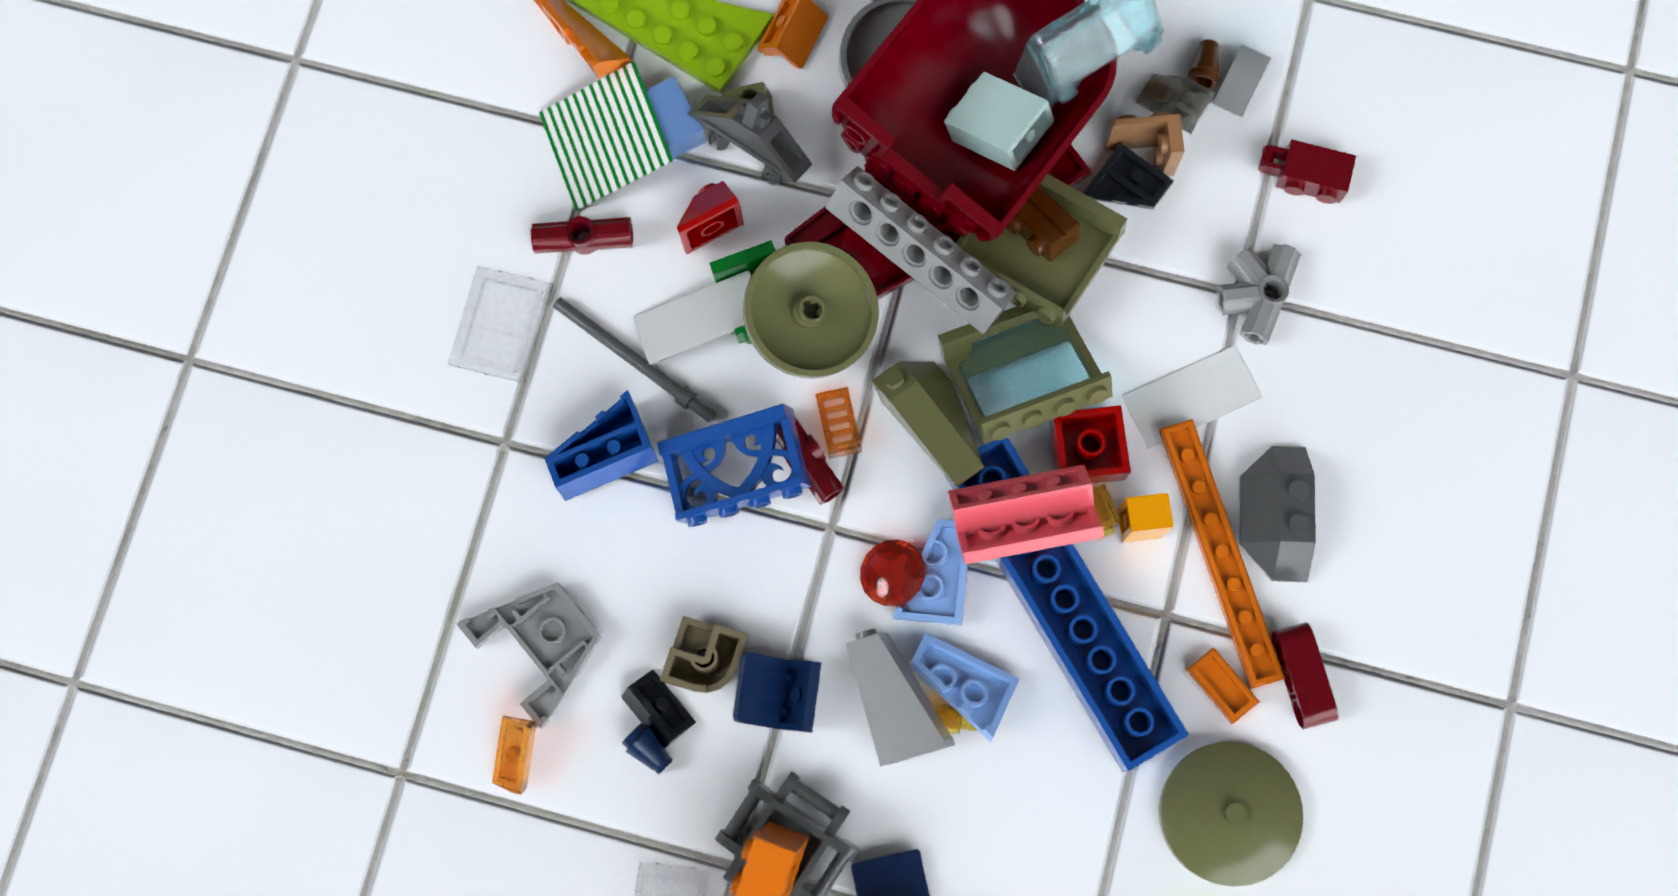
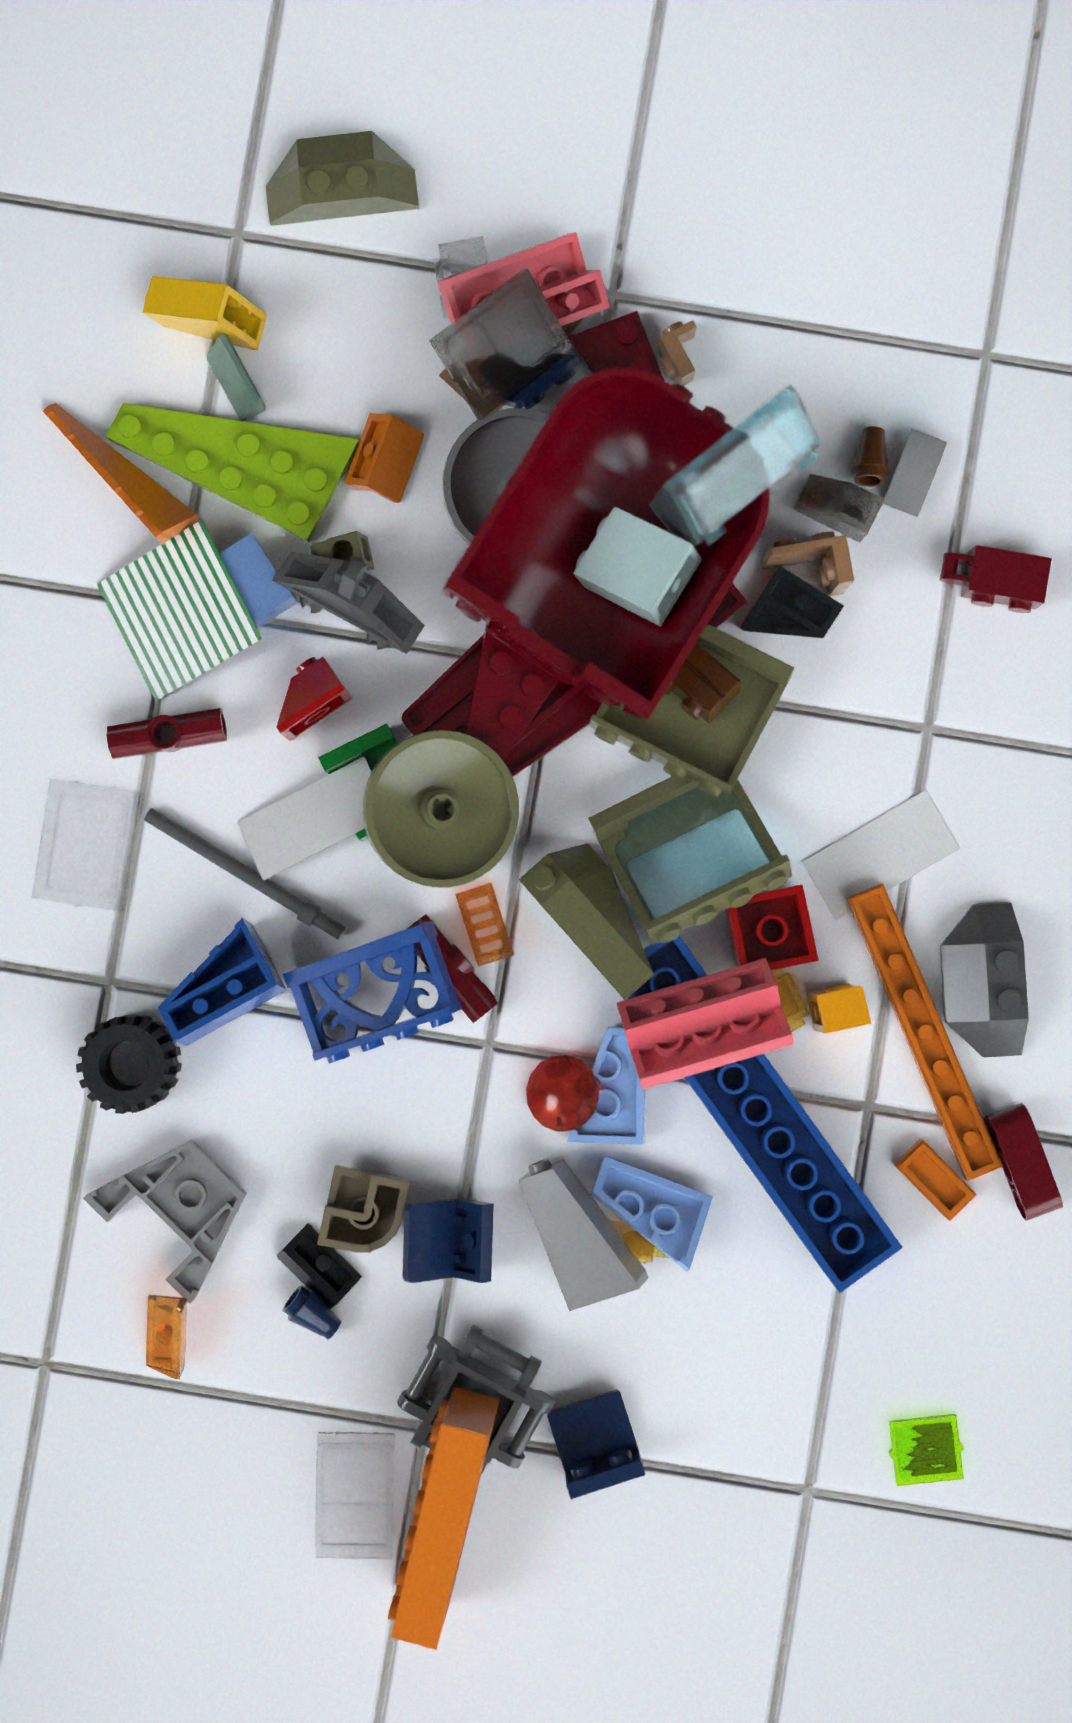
camera: 10 degrees left, 10 degrees up
(494, 489) = (98, 1071): none -> black tyre
(920, 249) = (560, 727): light grey brick -> none
(1231, 814) = (952, 1317): olive dish -> none
(1249, 292) = (938, 733): light grey piece -> none

